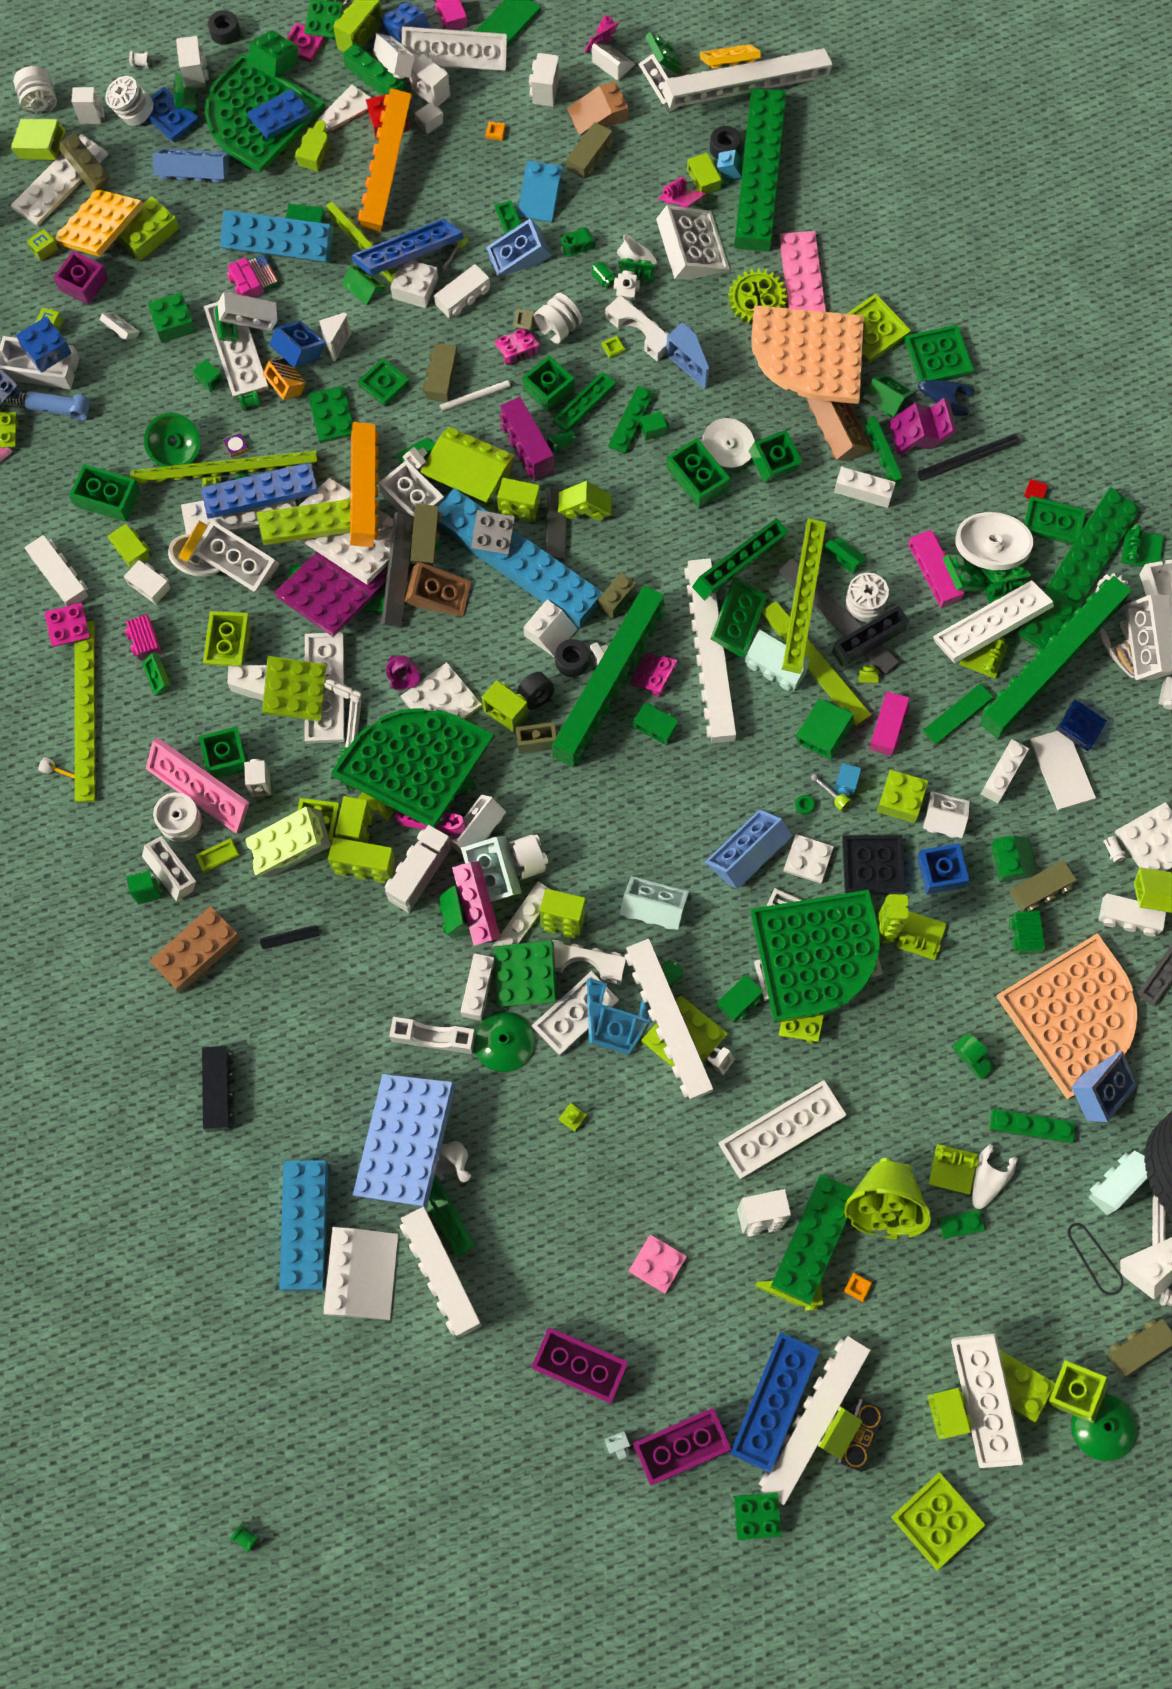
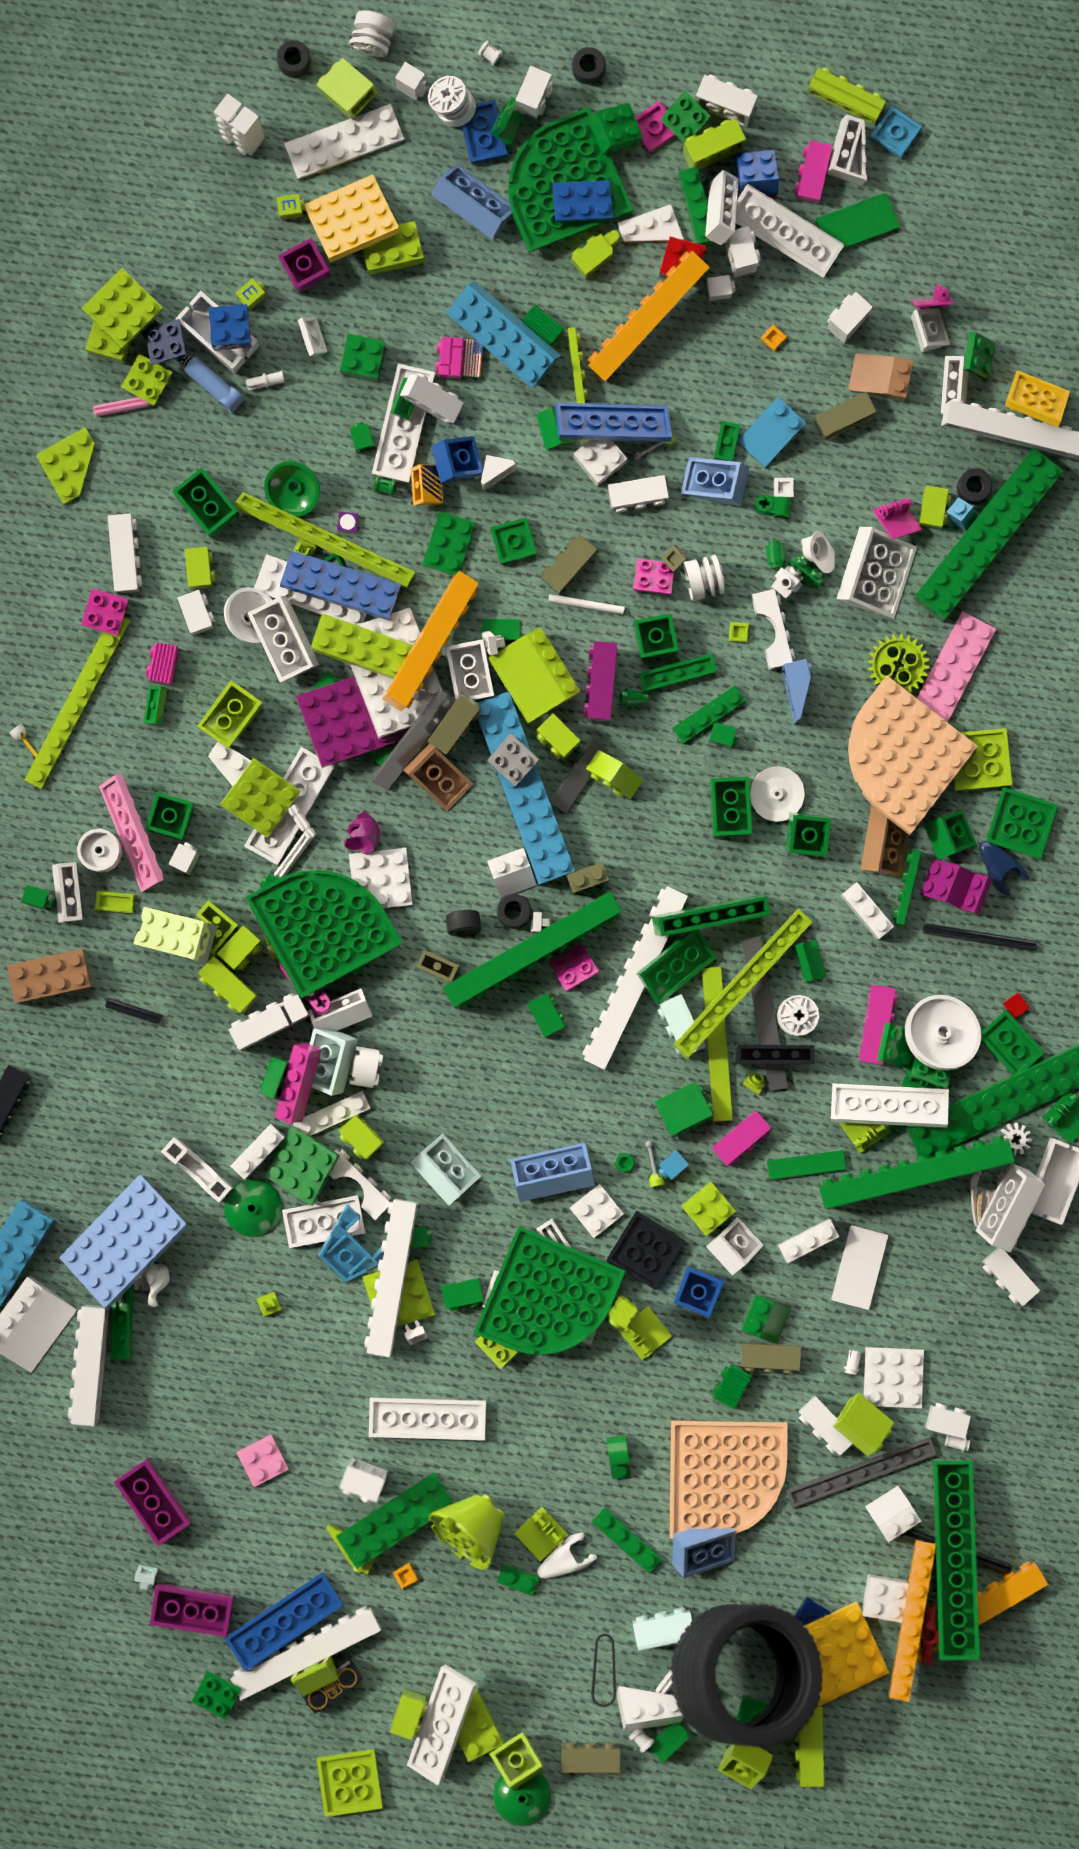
camera: 30 degrees right, 15 degrees up
(84, 162) = (373, 145): olive brick -> none
(100, 379) = (265, 381): none -> white axle
(192, 541) = (253, 603): yellow beam -> none
(505, 705) = (428, 923): lime brick -> none
(575, 223) = (783, 487): none -> white plate
(1081, 725) = (900, 1241): clear blue plate -> none

